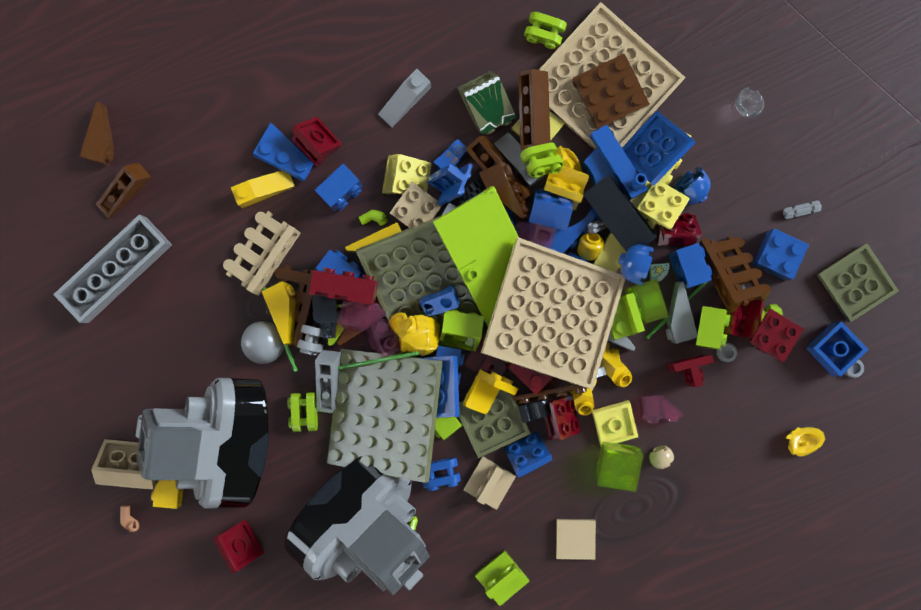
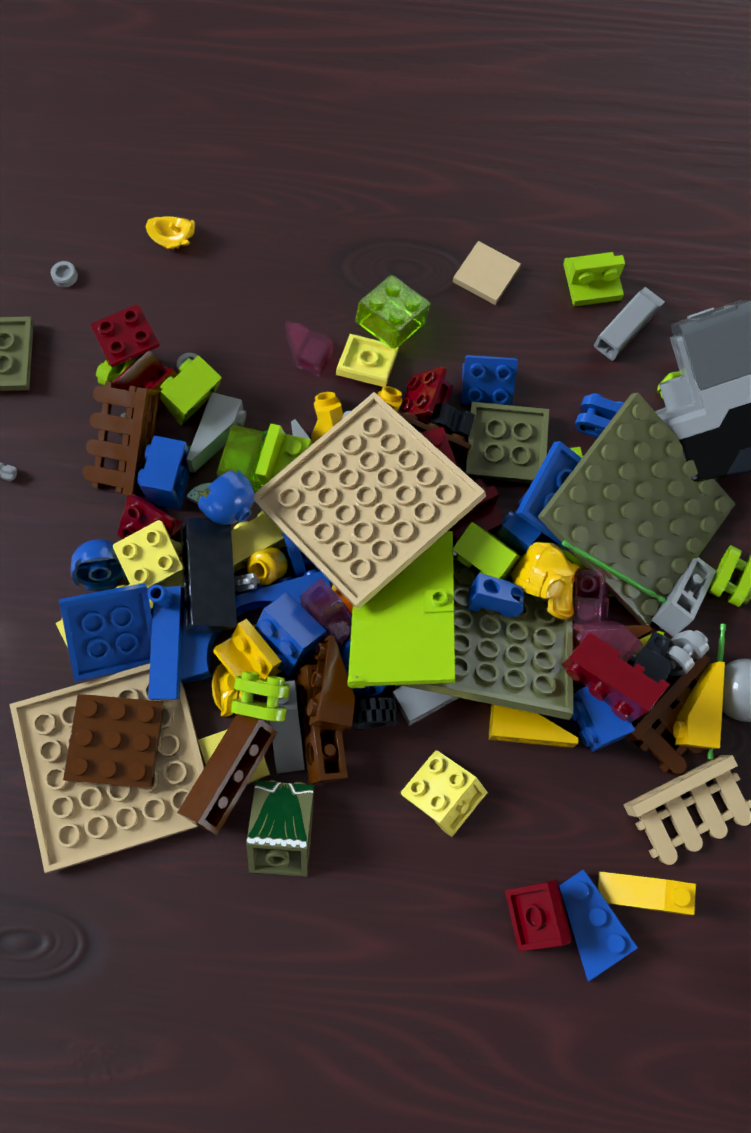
camera: 150 degrees left, 15 degrees down
(339, 188) = (545, 824): blue brick -> none
(374, 215) = (514, 767): lime arm -> none
(405, 97) = (385, 900): light grey slope -> none
(415, 206) = (456, 740): tan hinge -> none
(450, 182) = (392, 741): blue bracket -> none
(452, 155) = (370, 782): blue leg -> none
(460, 556) = (628, 323): none -> light grey piece
(486, 389) = (498, 471): yellow bracket -> none
(489, 483) = (551, 378): tan bracket -> none
(535, 34) = (159, 882): lime brick -> none
(661, 457) = (338, 298): tan piece -> none
(690, 367) = (242, 365): dark red bracket -> none
(780, 254) = (53, 430): blue brick -> none
(837, 348) = (67, 296): blue brick -> none

